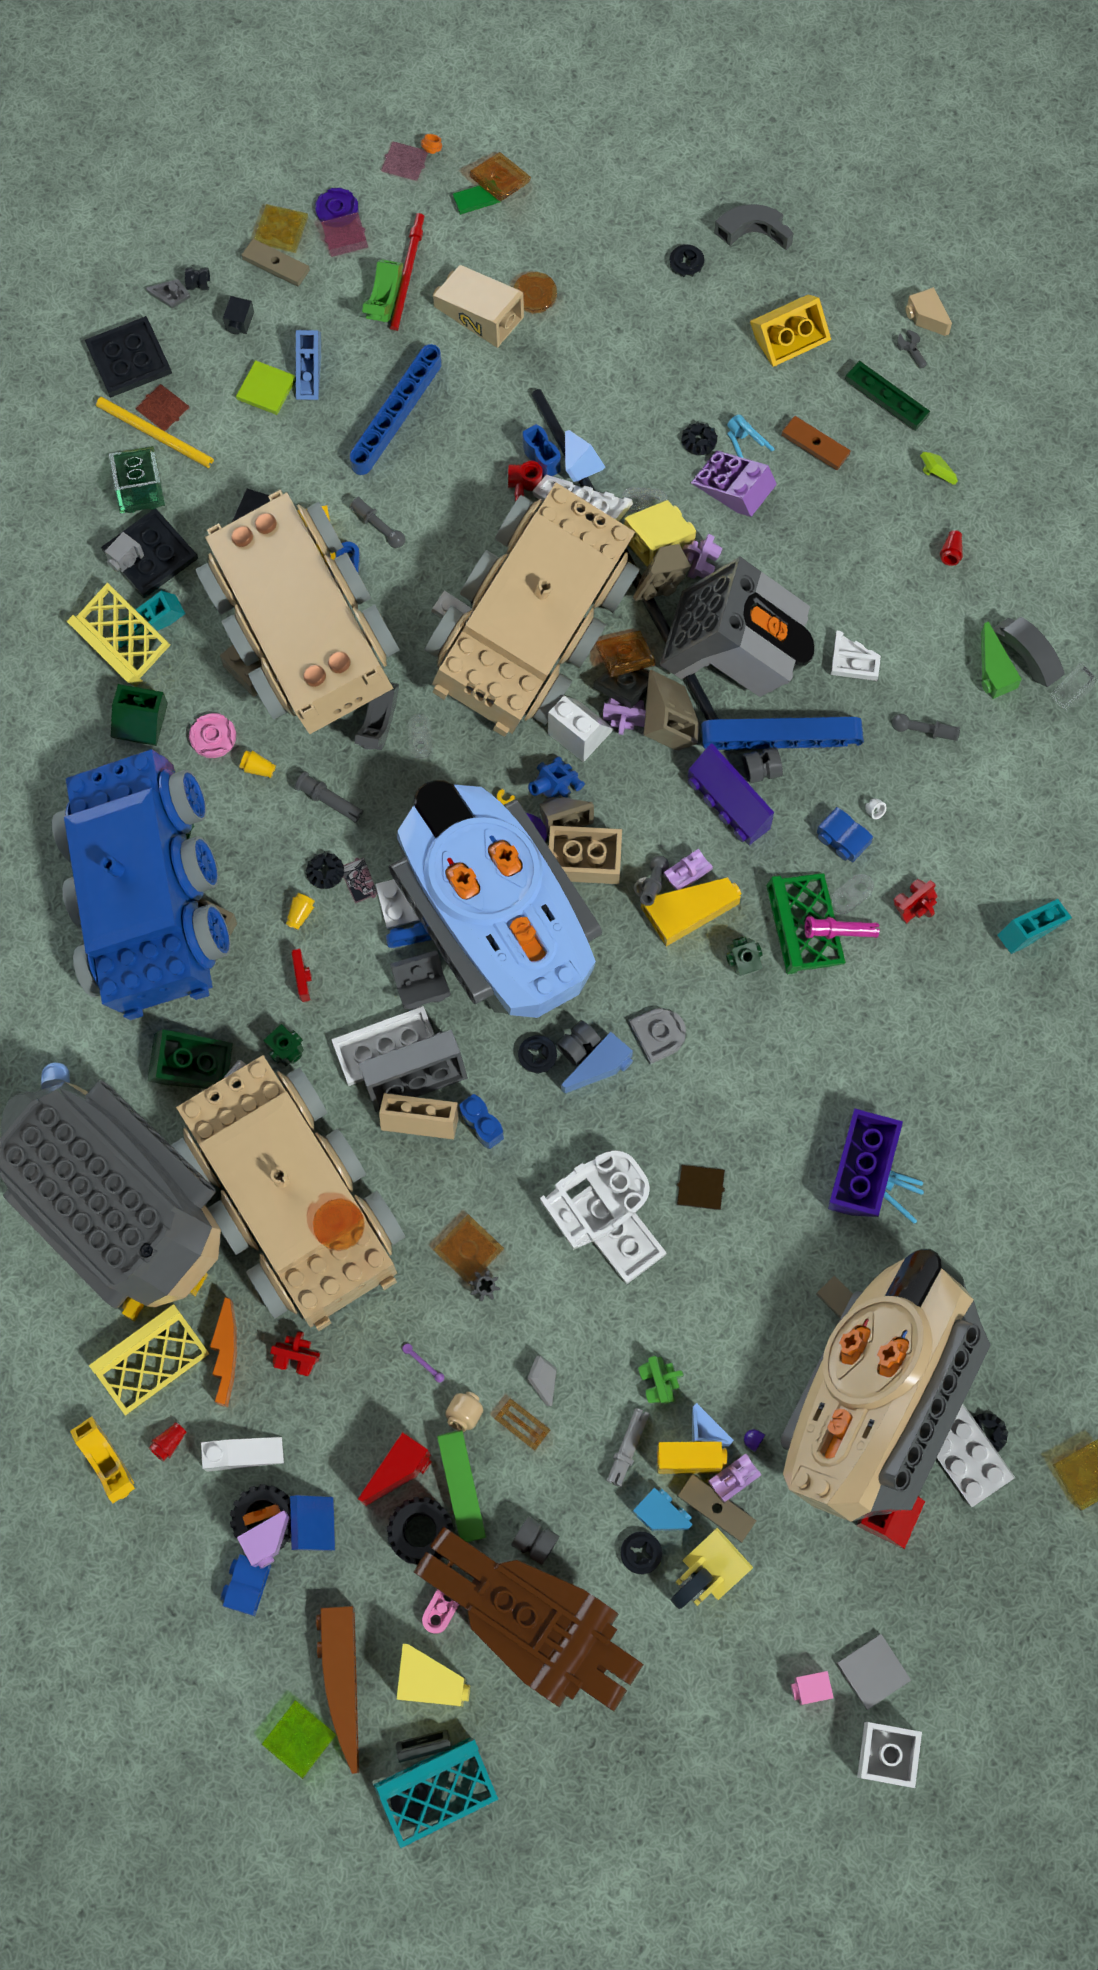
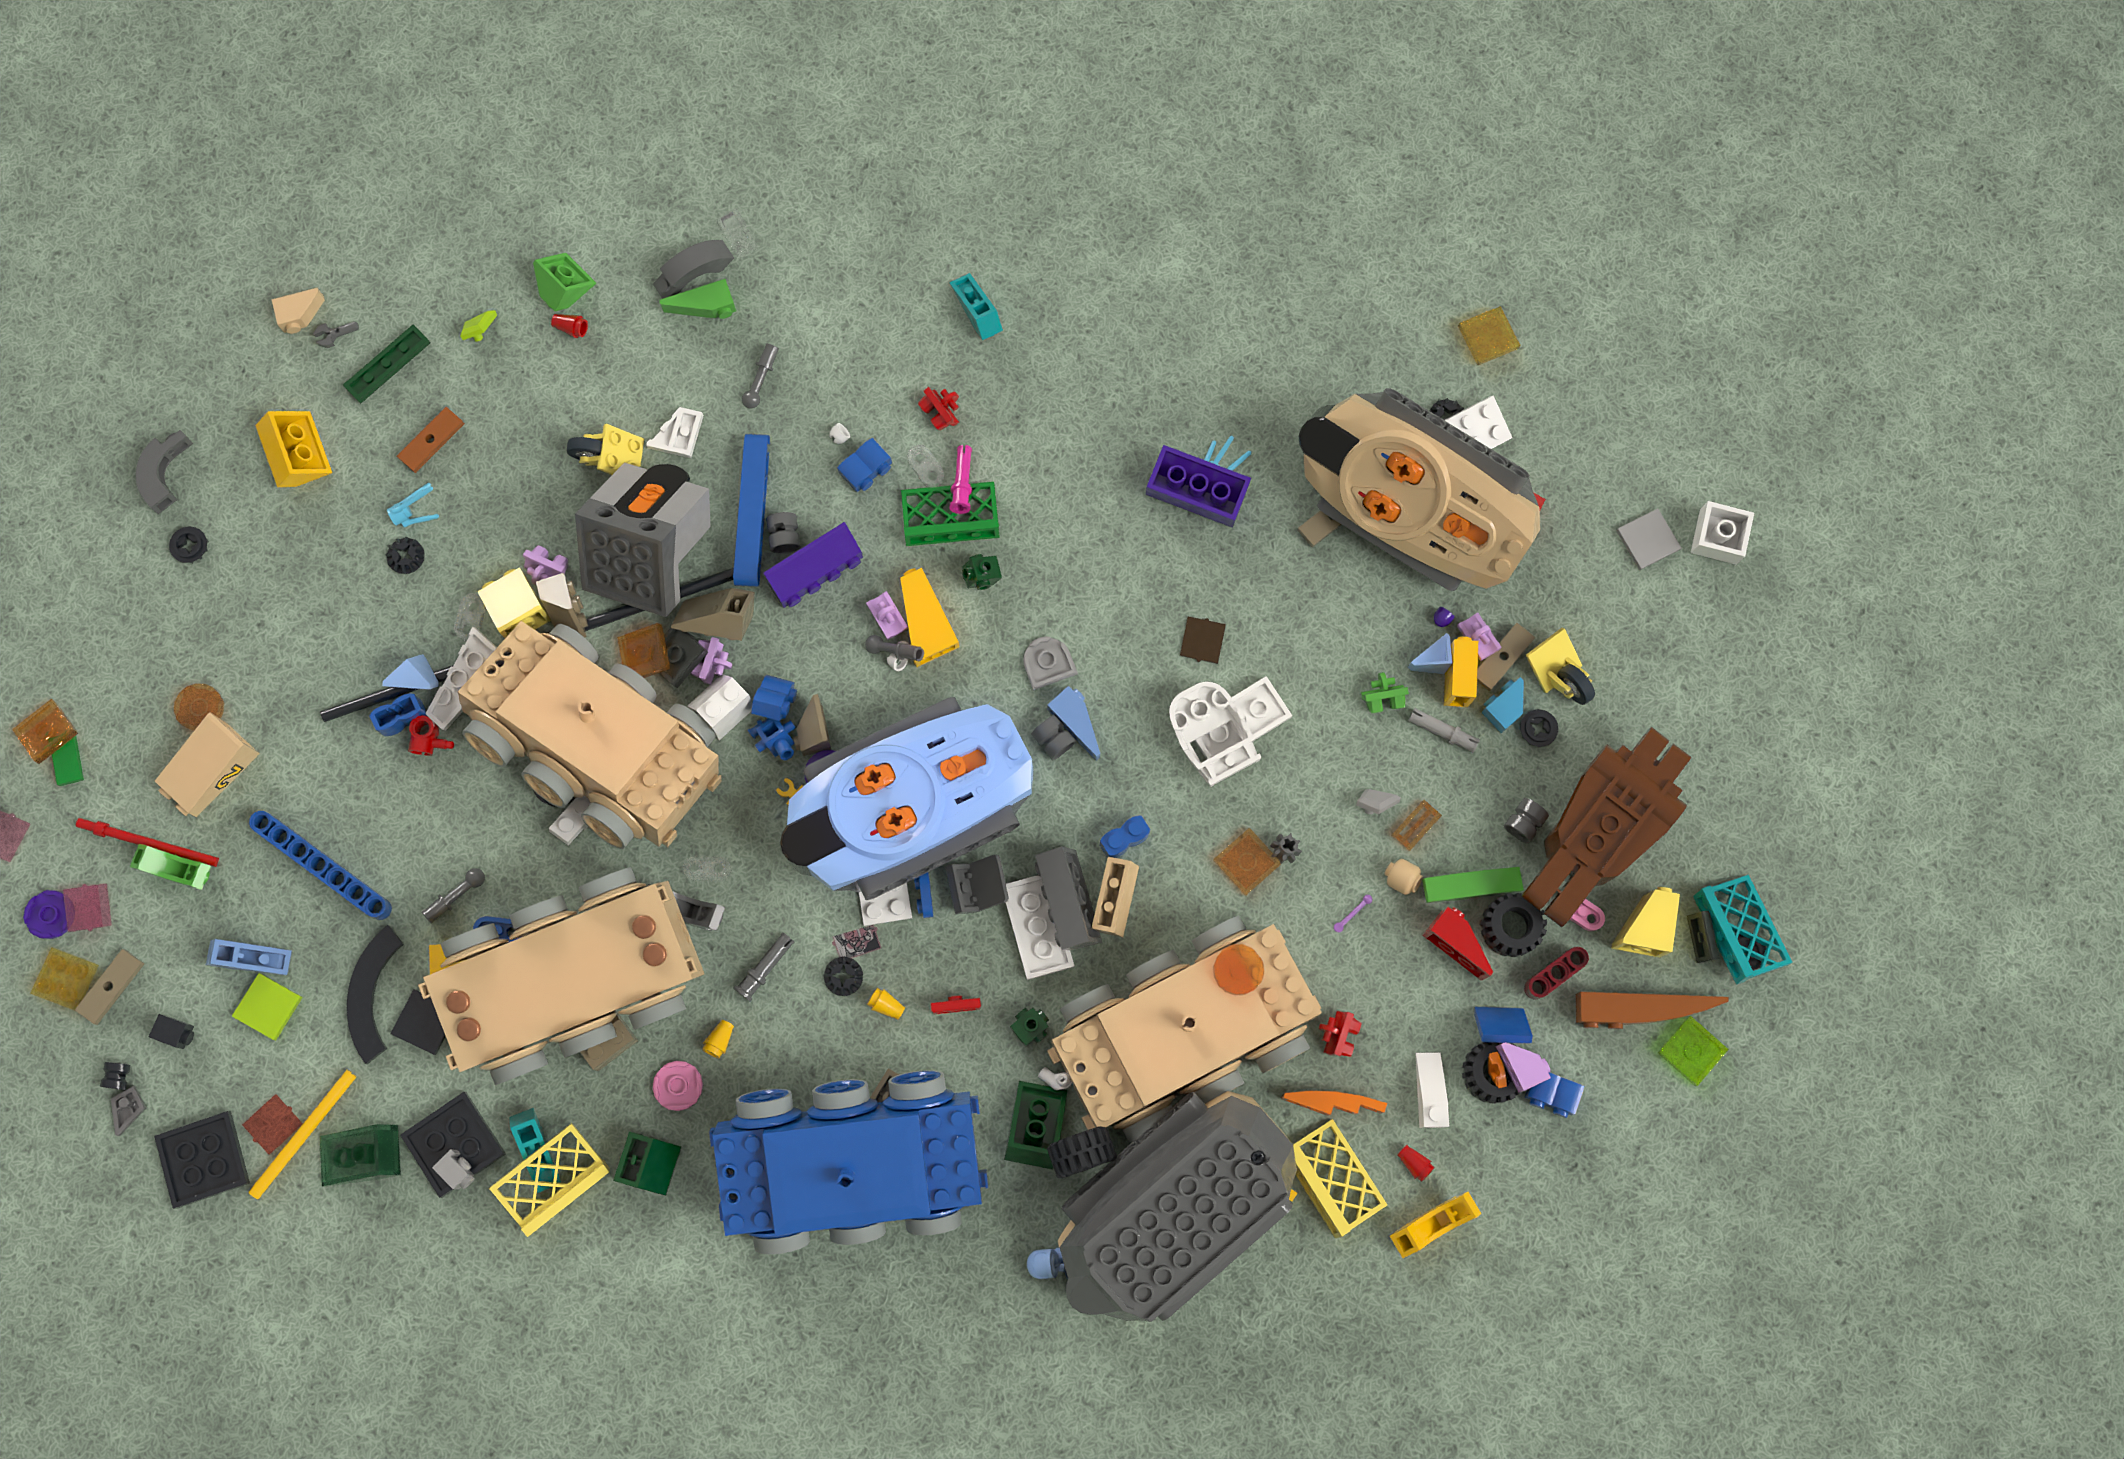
camera: 90 degrees left, 5 degrees up
(155, 1094) = (1081, 1152): none -> black tyre
(283, 461) = (362, 991): none -> black tile
(367, 1569) = (1566, 968): none -> dark red beam
(535, 1043) = (1057, 768): black gear -> none
(587, 853) = (858, 708): tan brick -> none
(591, 773) = (774, 698): none -> blue brick
(736, 482) = (462, 524): medium lavender slope -> none
(812, 1688) = (1663, 591): bright pink brick -> none
(826, 602) = (607, 449): none -> light yellow plate
(997, 533) = (561, 281): none -> bright green slope

